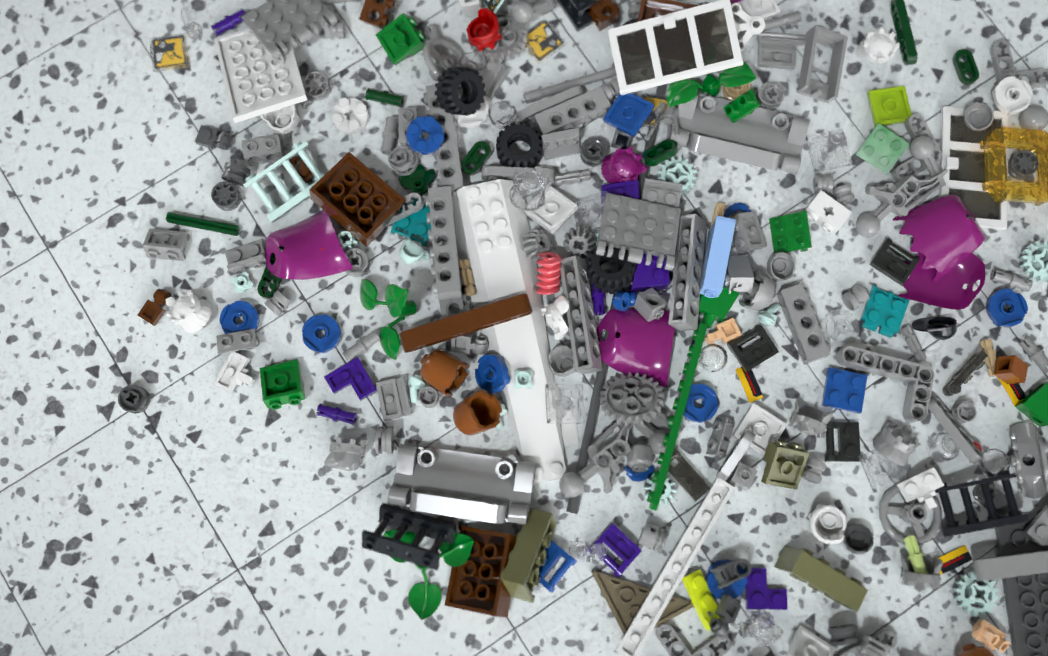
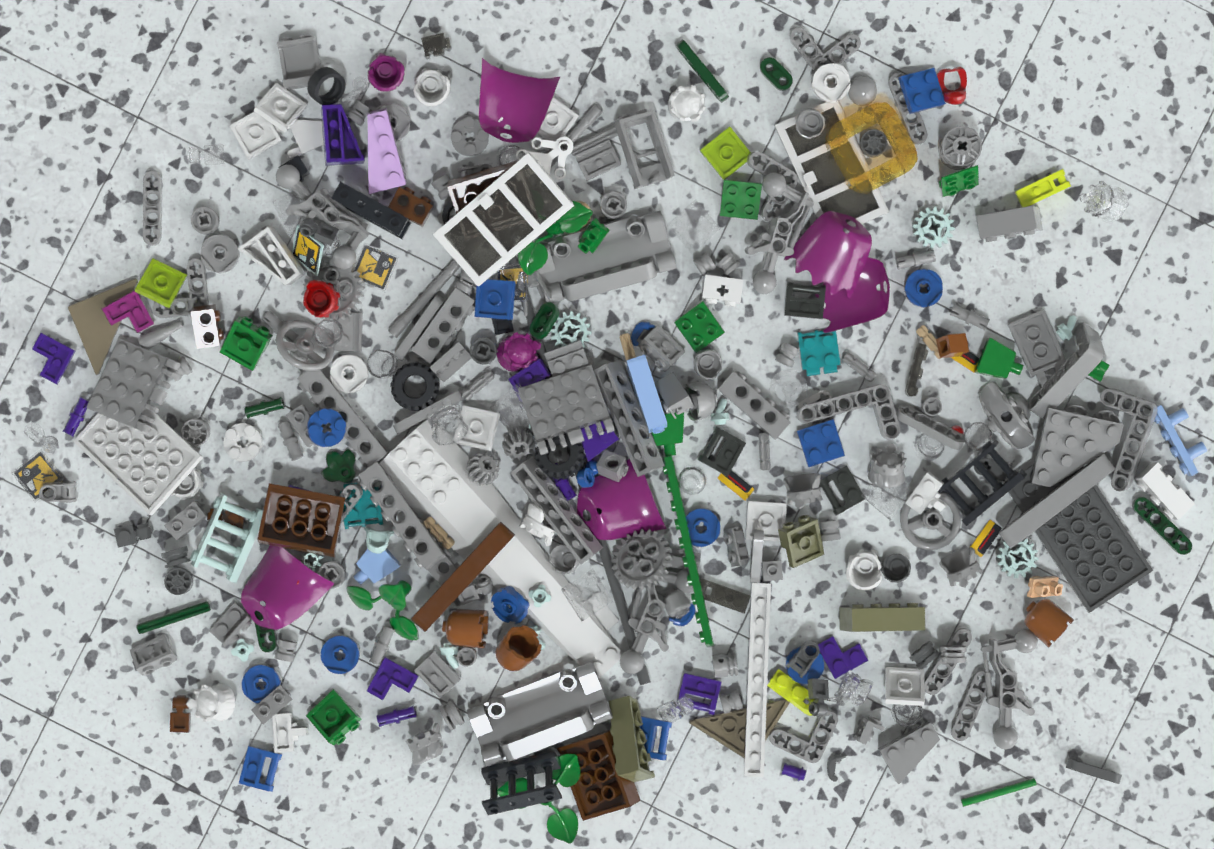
camera: 30 degrees left, 10 degrees up
(134, 399) = (213, 804): dark grey wheel -> none
(178, 71) = (60, 492): none -> light grey piece
(188, 387) = (254, 765): none -> blue plate
(397, 273) = (375, 566): none -> light blue torso
(402, 159) = (317, 458): light grey wheel -> none
(448, 91) = (322, 370): black tyre -> none
(475, 159) = (381, 417): dark green plate -> none
(549, 274) = (508, 490): coral piece -> none
(642, 574) = (731, 702): none -> light grey wheel
(666, 492) = (714, 619): light aqua gear -> none
(725, 331) = (691, 450): light nougat plate -> none
(790, 369) = (764, 451): none -> light grey axle
(915, 555) = (950, 555): yellowish green axle -> none
(938, 327) = (872, 341): black cap -> none

